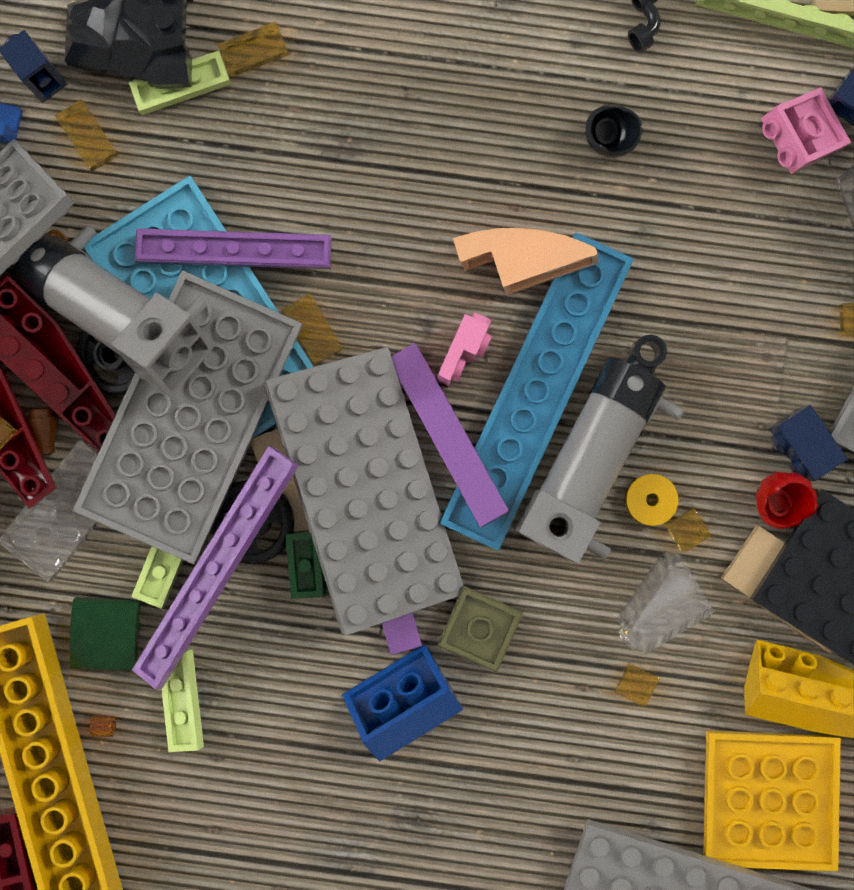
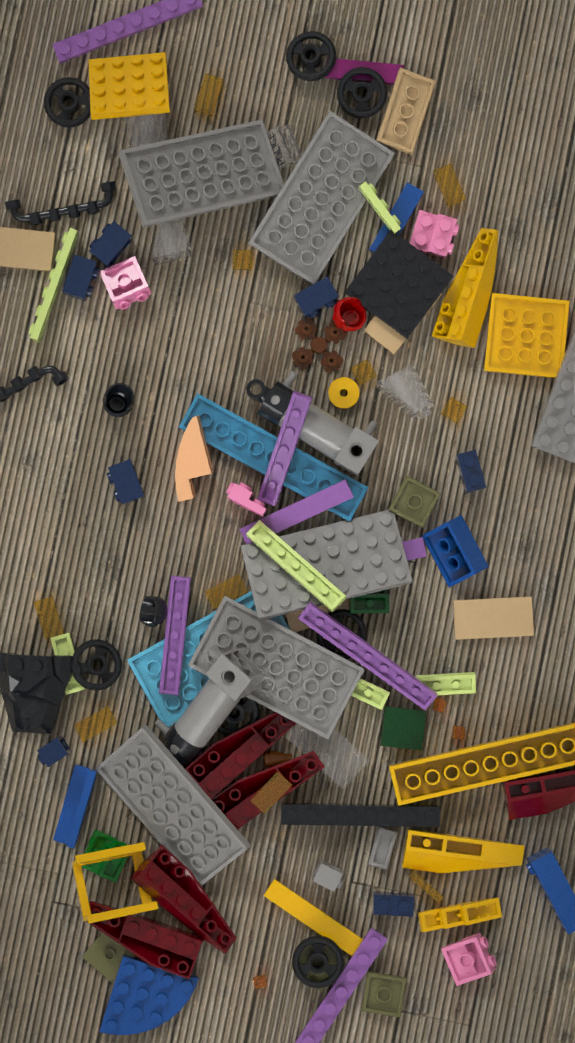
camera: 85 degrees left, 0 degrees up
(145, 692) = (439, 705): none -> clear orange piece
(160, 147) = (101, 648): none -> black wheel
(270, 211) = (153, 611): none -> black hair
(295, 772) = (493, 618): none -> tan tile
(356, 439) = (296, 566): none -> yellowish green plate
(479, 153) = (126, 482): none -> dark blue brick
(537, 720) = (470, 471): none -> dark blue brick
(556, 406) = (284, 448): none -> medium lavender tile
(726, 453) = (318, 345): none -> reddish brown plant
(807, 57) = (80, 278): none -> dark blue brick

